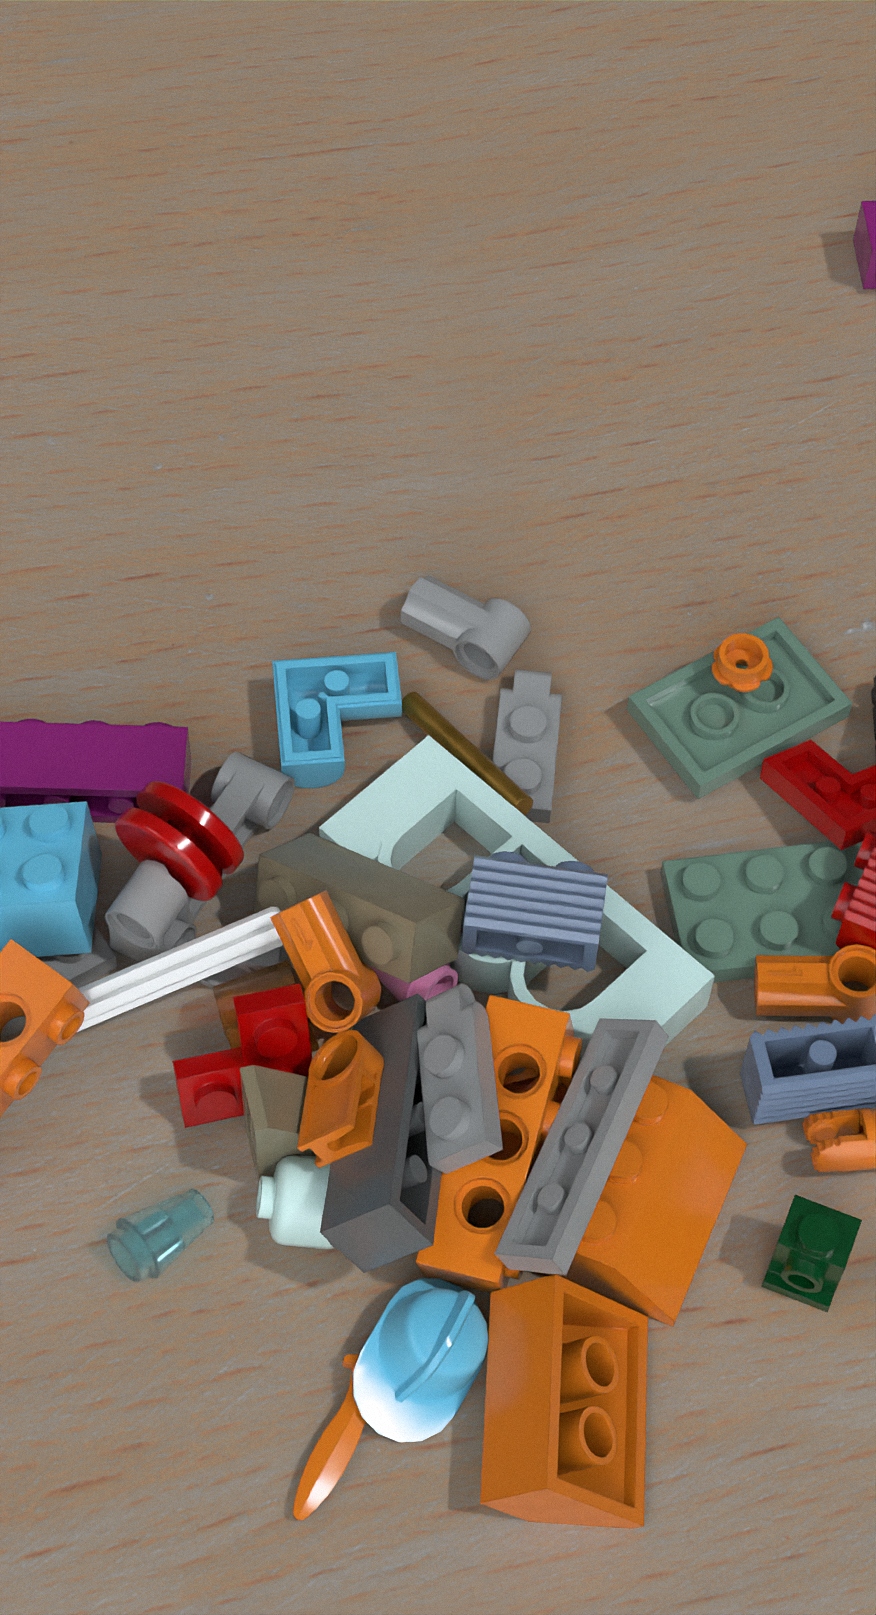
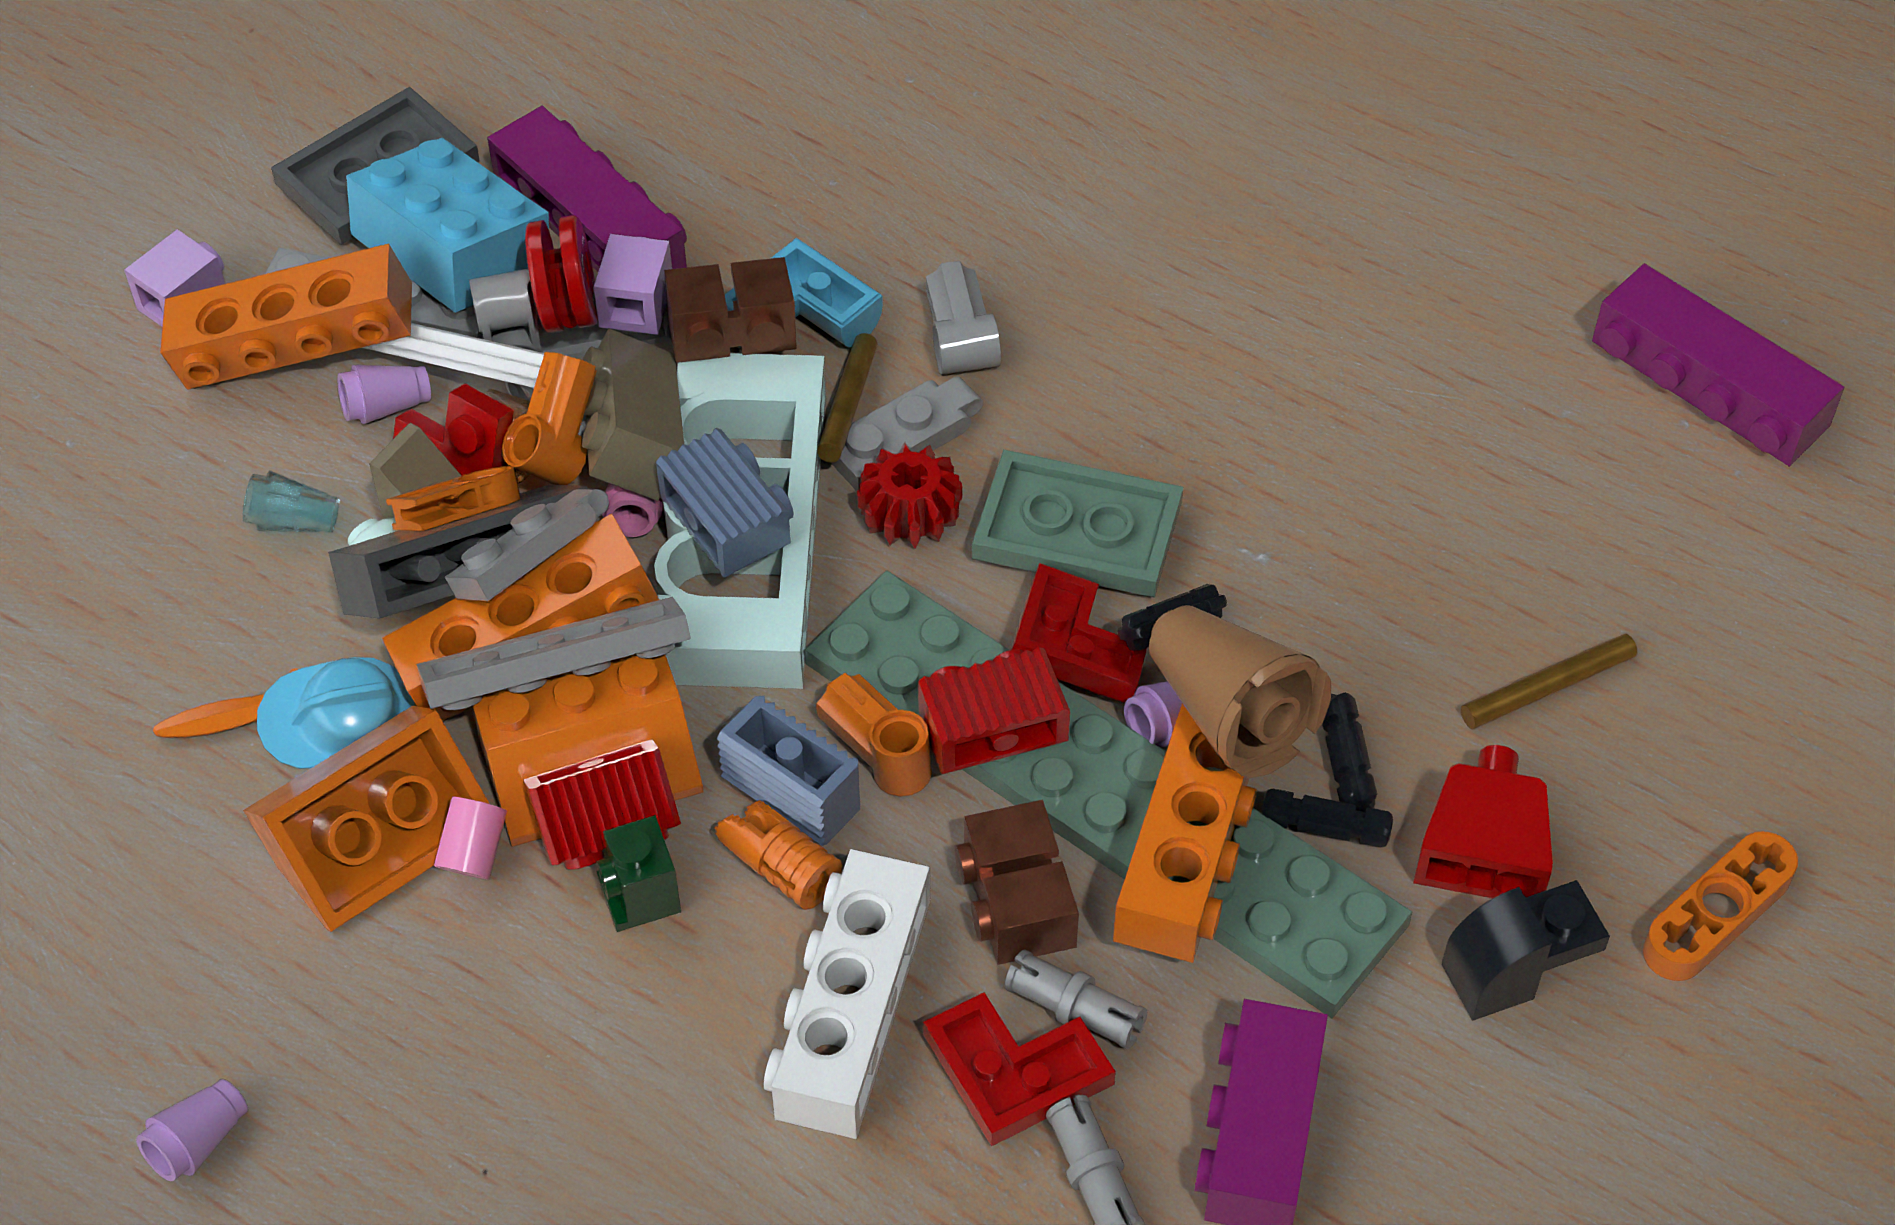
camera: 50 degrees right, 5 degrees down
(102, 1073) = (378, 391): none -> lavender cone
(234, 792) = (632, 284): none -> lavender brick
(328, 775) = (759, 319): none -> copper piece
(607, 789) = (909, 495): none -> red gear
(665, 1348) = (470, 838): none -> bright pink piece
(725, 1225) = (598, 795): none -> red brick
(746, 651) = (1104, 474): orange plate -> none

